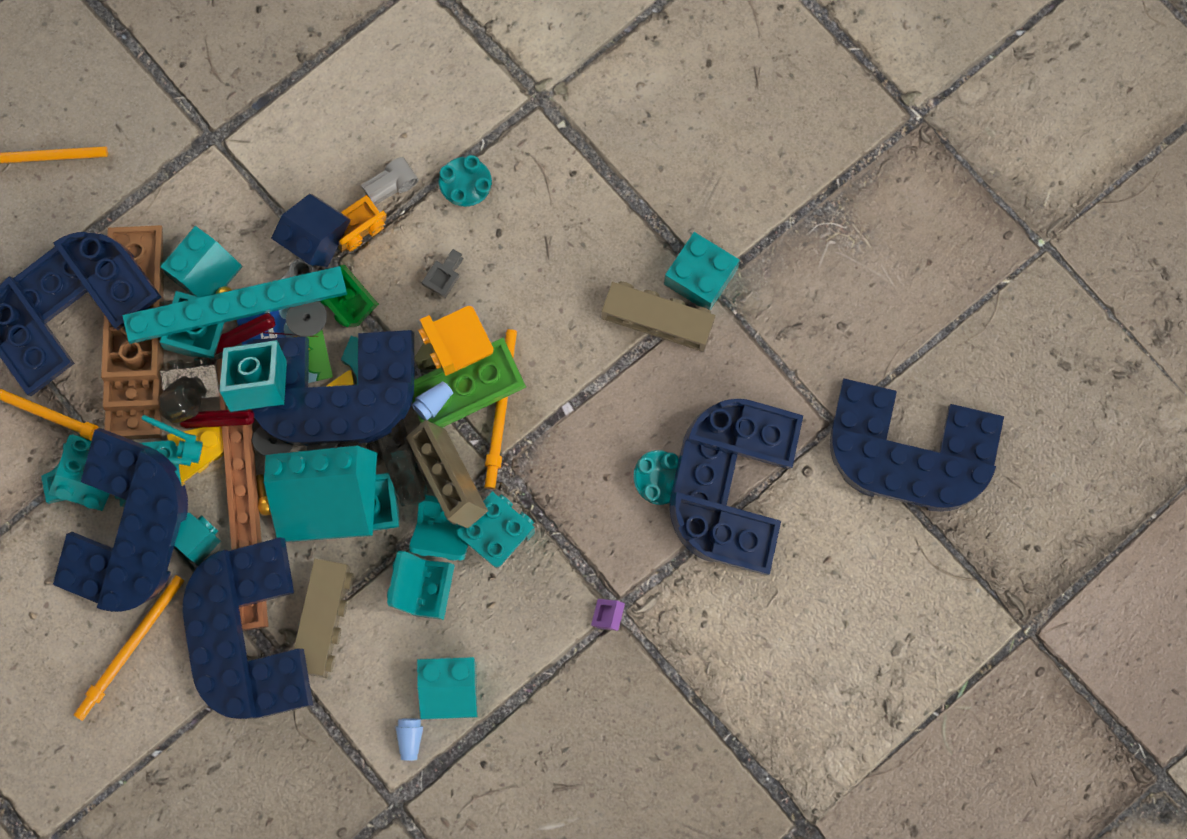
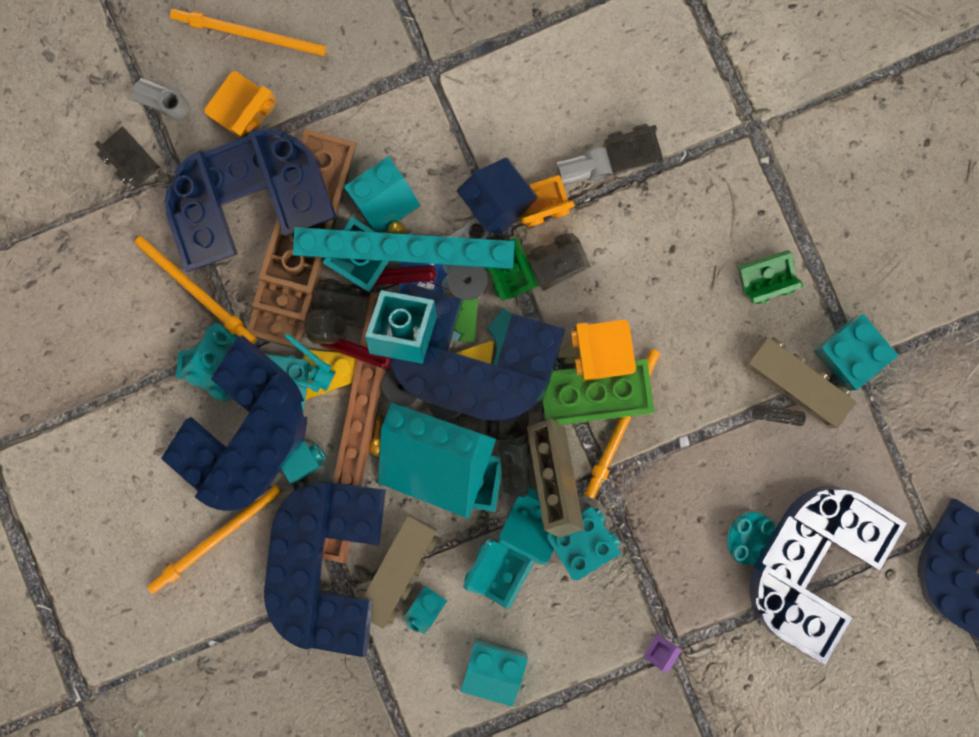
camera: 20 degrees right, 10 degrees up
(37, 224) = (240, 105): none -> light orange bracket
(359, 649) = (424, 610): none -> teal bracket
(391, 275) = (558, 260): none -> clear smoke bracket
(409, 737) = (445, 705): light blue cone -> none
(430, 151) = (633, 148): none -> clear smoke bracket
(431, 401) = (562, 400): light blue cone -> none
(443, 276) = (607, 278): dark grey plate -> none
(465, 181) = (656, 189): teal dish -> none
(597, 228) = (769, 277): none -> green bracket
(649, 354) = (778, 415): none -> clear smoke axle

